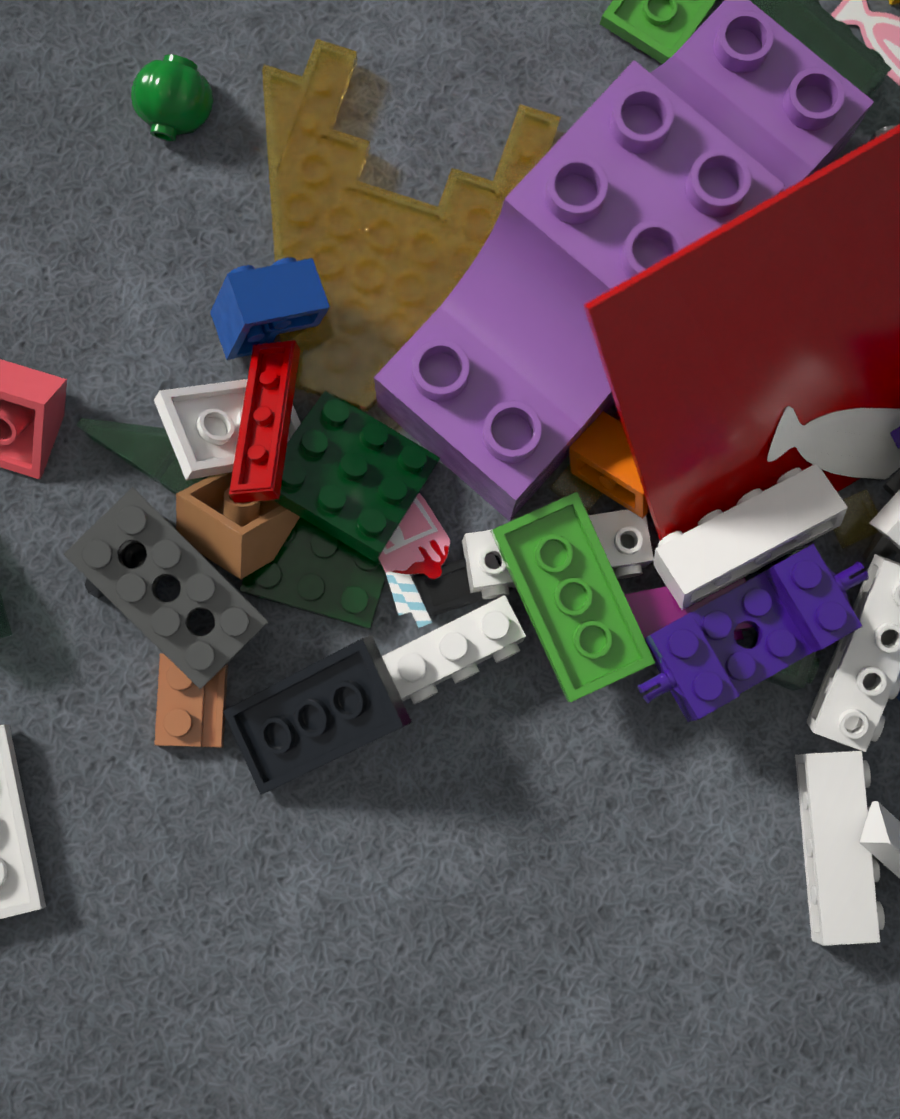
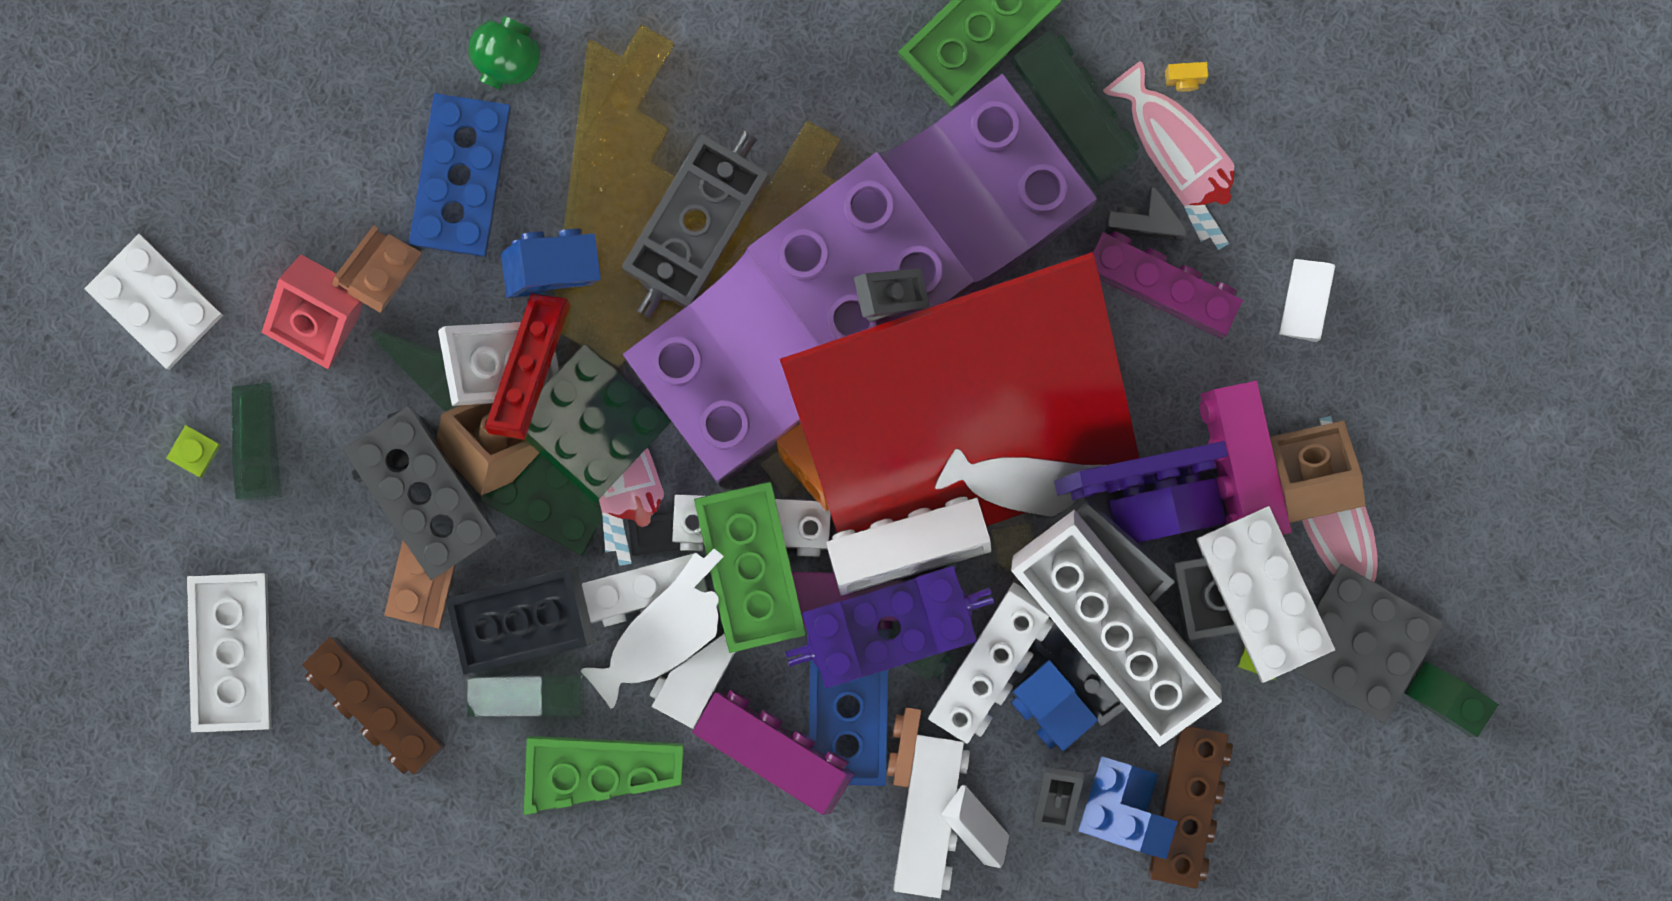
camera: 20 degrees right, 5 degrees up
(72, 353) = (377, 269): none -> nougat plate
(123, 223) = (476, 196): none -> blue plate
(159, 853) = (373, 705): none -> reddish brown brick
(338, 805) = (525, 696): none -> slope
(409, 268) = (677, 261): none -> dark grey brick
(423, 877) = (585, 770): none -> bright green wing
(487, 695) = (664, 633): none -> white sticker
(531, 748) = (692, 683): none -> white slope
(645, 810) = (774, 752): none -> magenta brick
(694, 767) = (867, 726): none -> blue plate
(696, 204) = (891, 293): none -> dark grey slope
(792, 789) = (901, 763): none -> nougat plate

